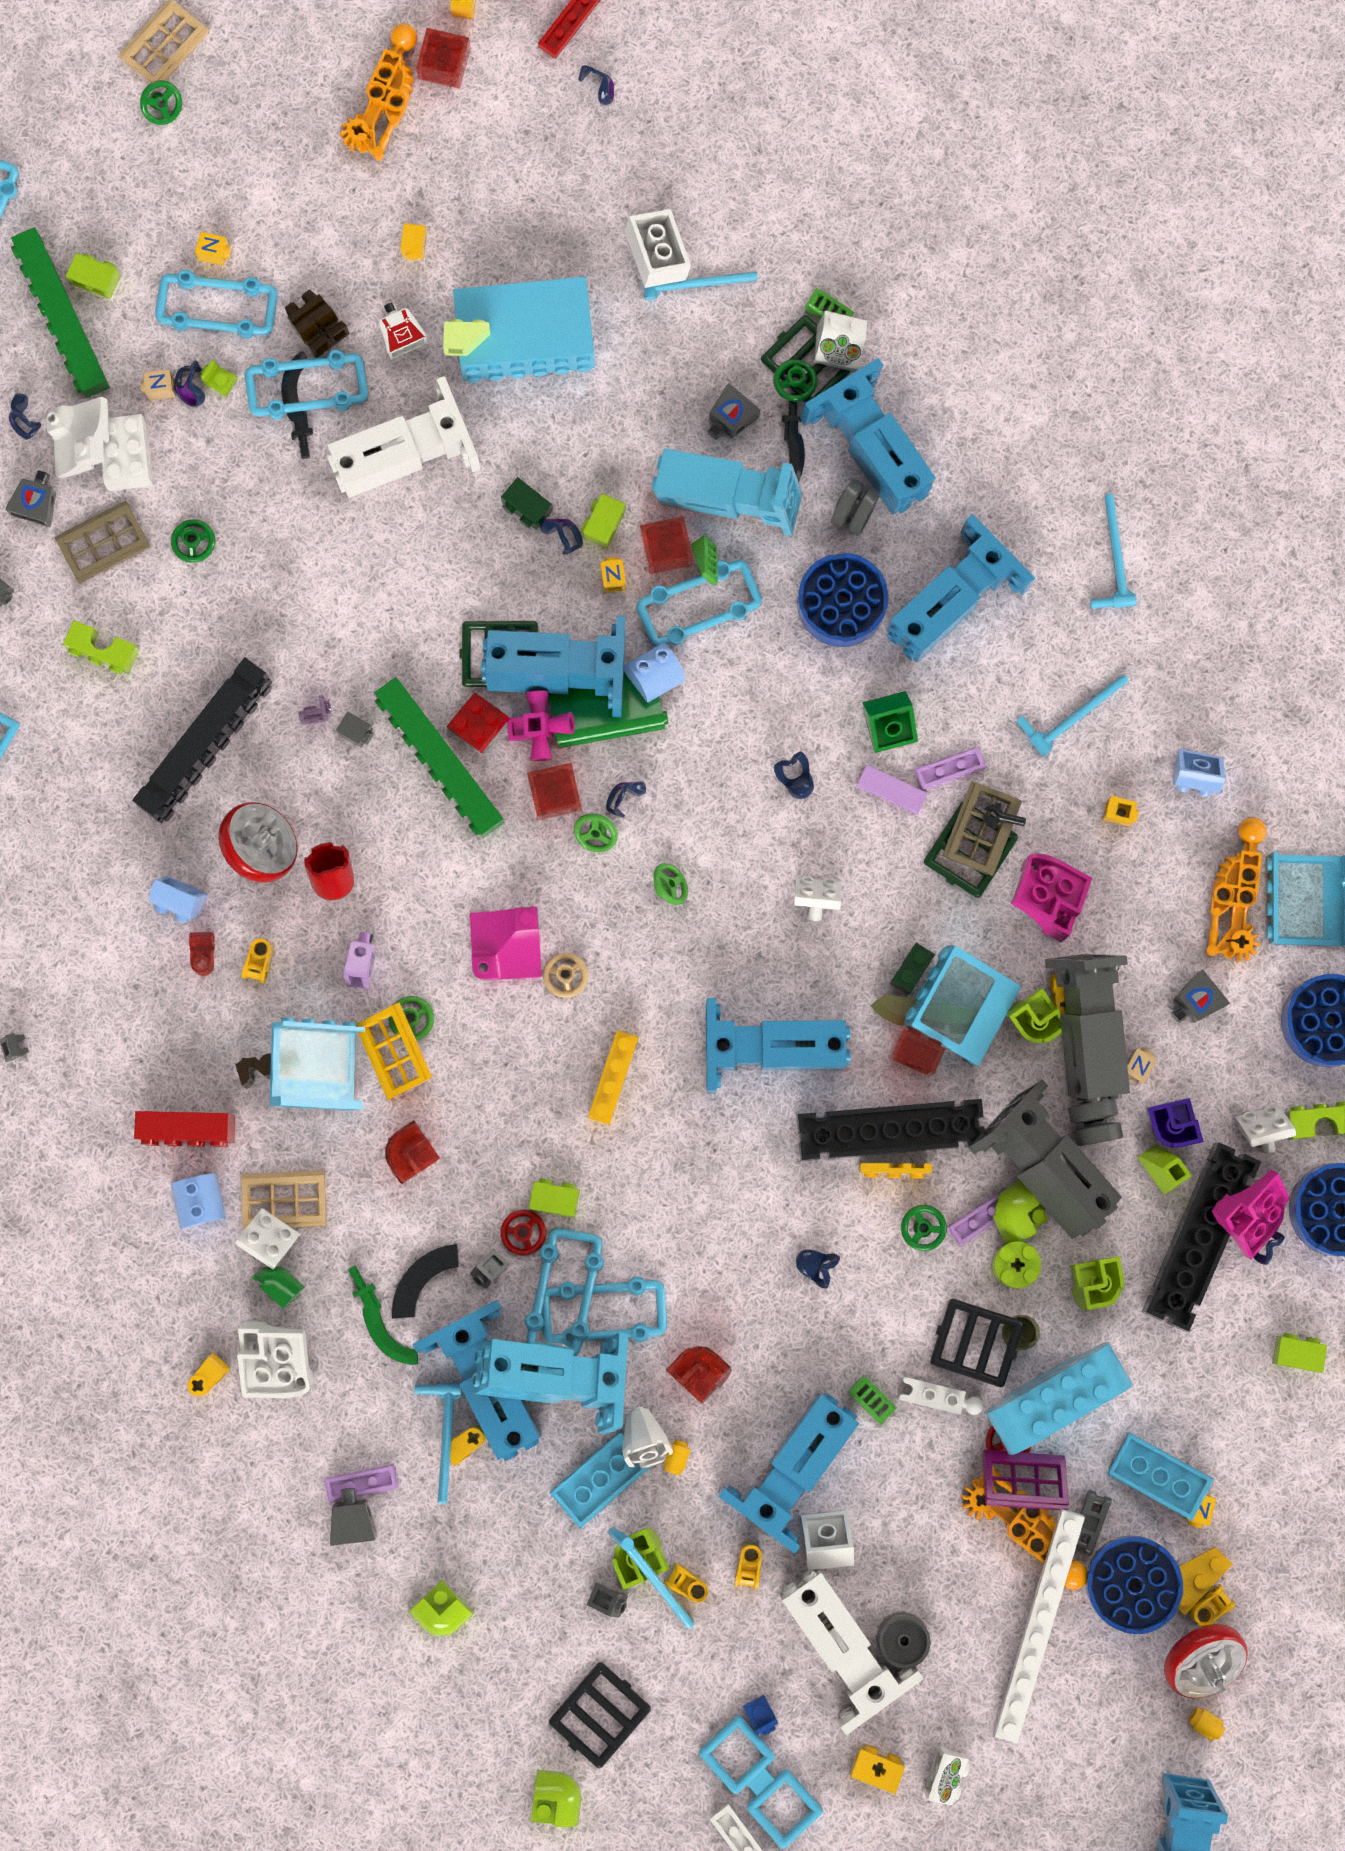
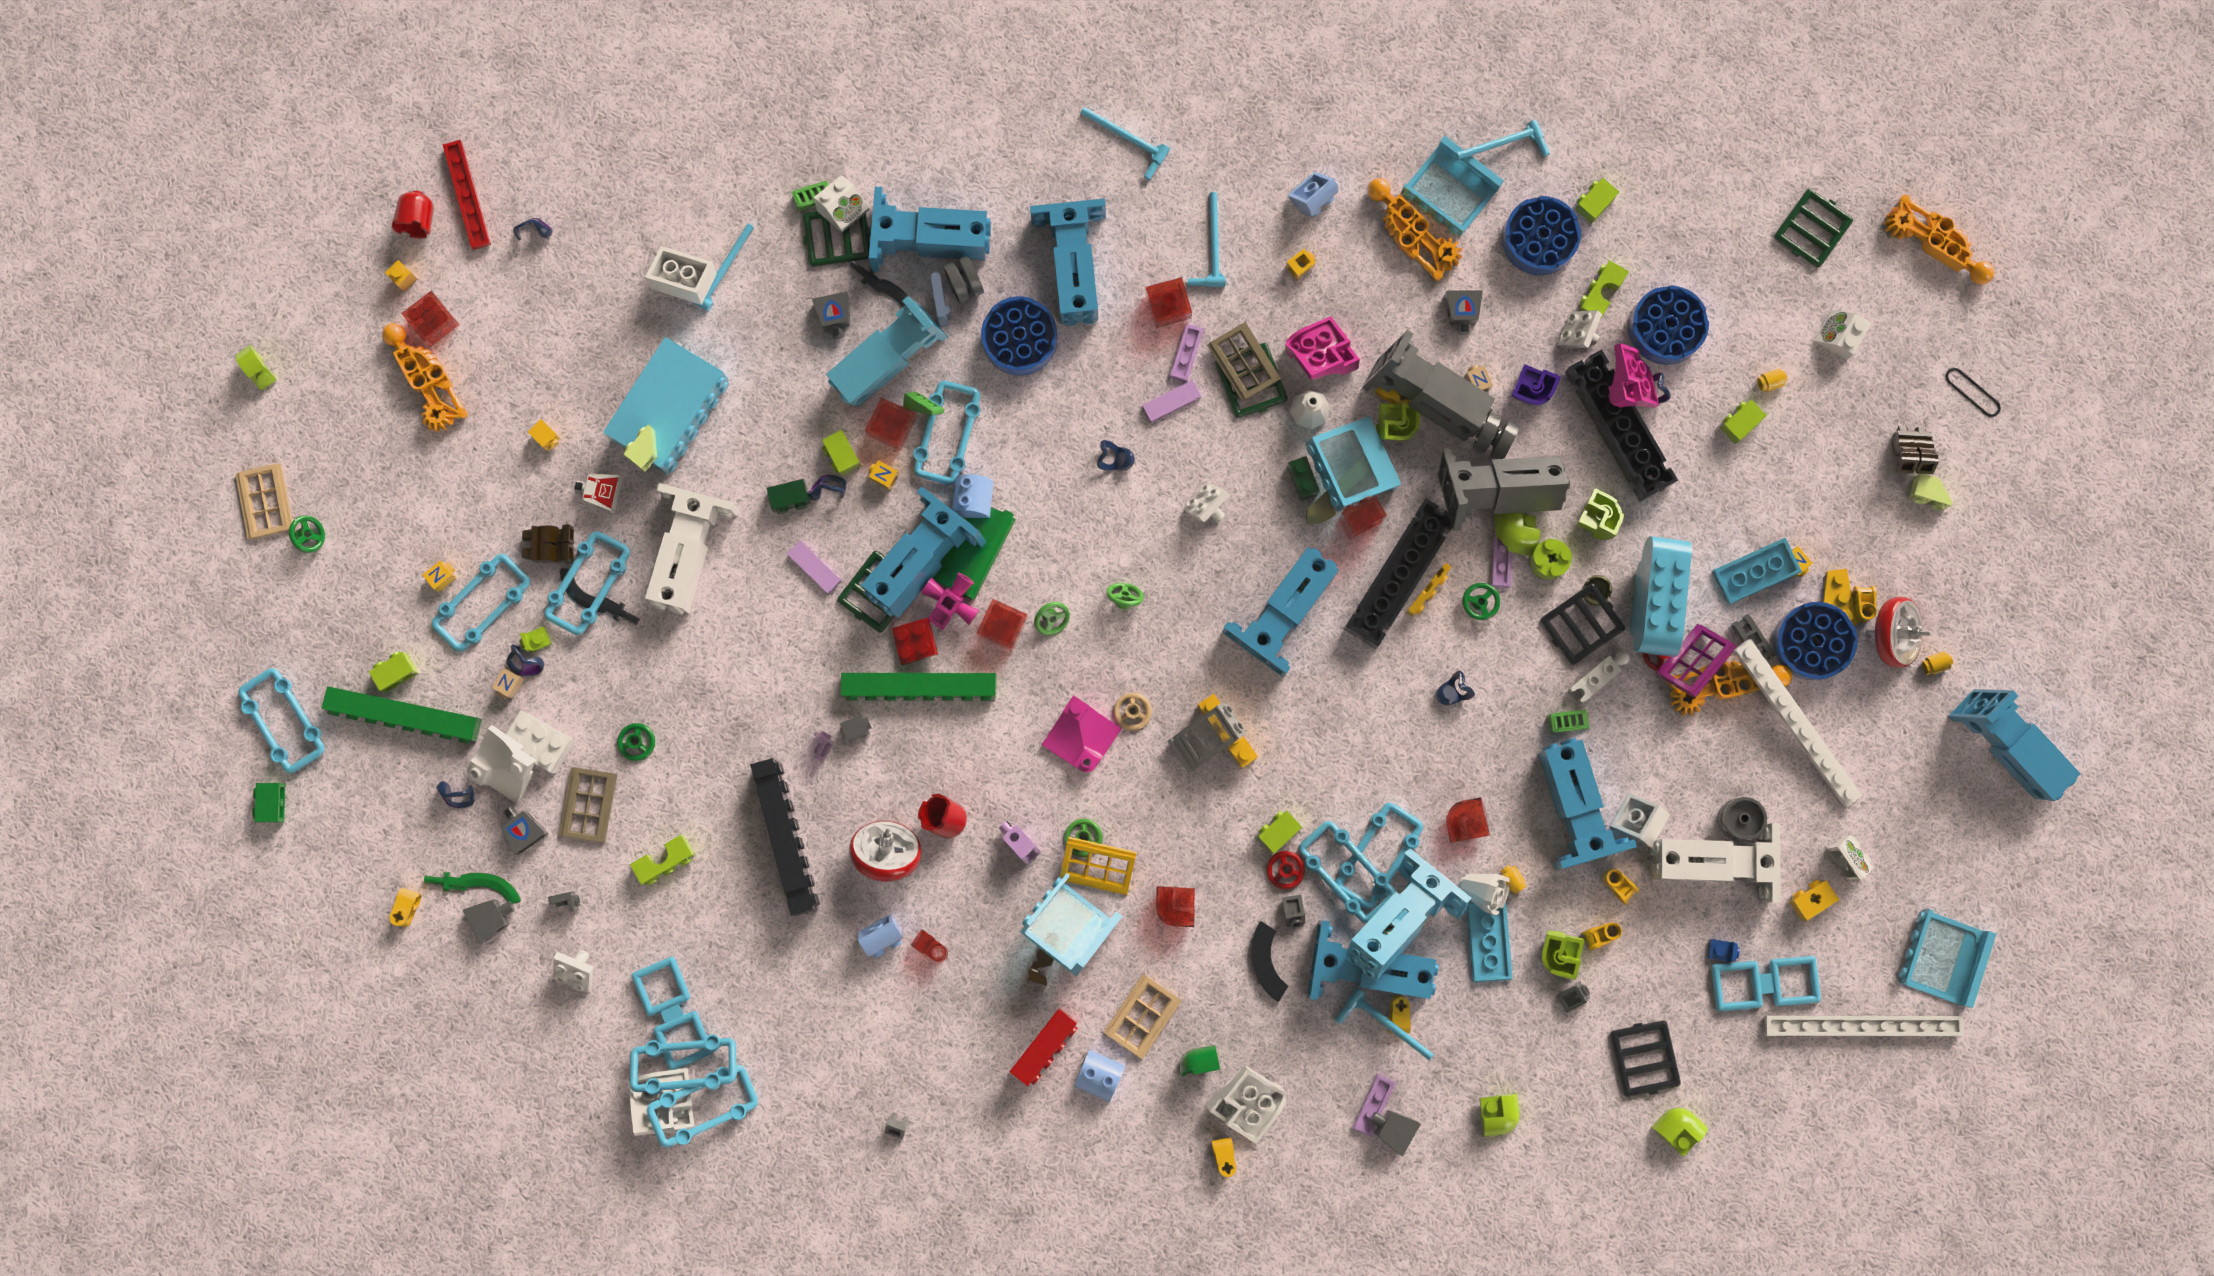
camera: 50 degrees left, 0 degrees up
(258, 962) = (966, 914): yellow piece -> none
(267, 1239) = (1163, 1046): white plate -> none
(375, 1324) = (1273, 1016): green sword -> none
(478, 578) = (814, 567): none -> lavender tile
(591, 1061) = (1207, 737): none -> light grey door
(627, 1544) = (1550, 953): medium azure bar -> none
(634, 788) = (1041, 569): dark blue piece -> none
(797, 372) = (842, 258): green piece -> none
(818, 501) = (942, 310): none -> sand blue container
(890, 721) = (1125, 367): green slope -> none
(979, 932) = (1309, 409): none -> white cone
(983, 714) = (1168, 302): none -> clear red brick
(1002, 817) = (1247, 342): black bar -> none
(1164, 1168) = (1558, 415): lime slope -> none

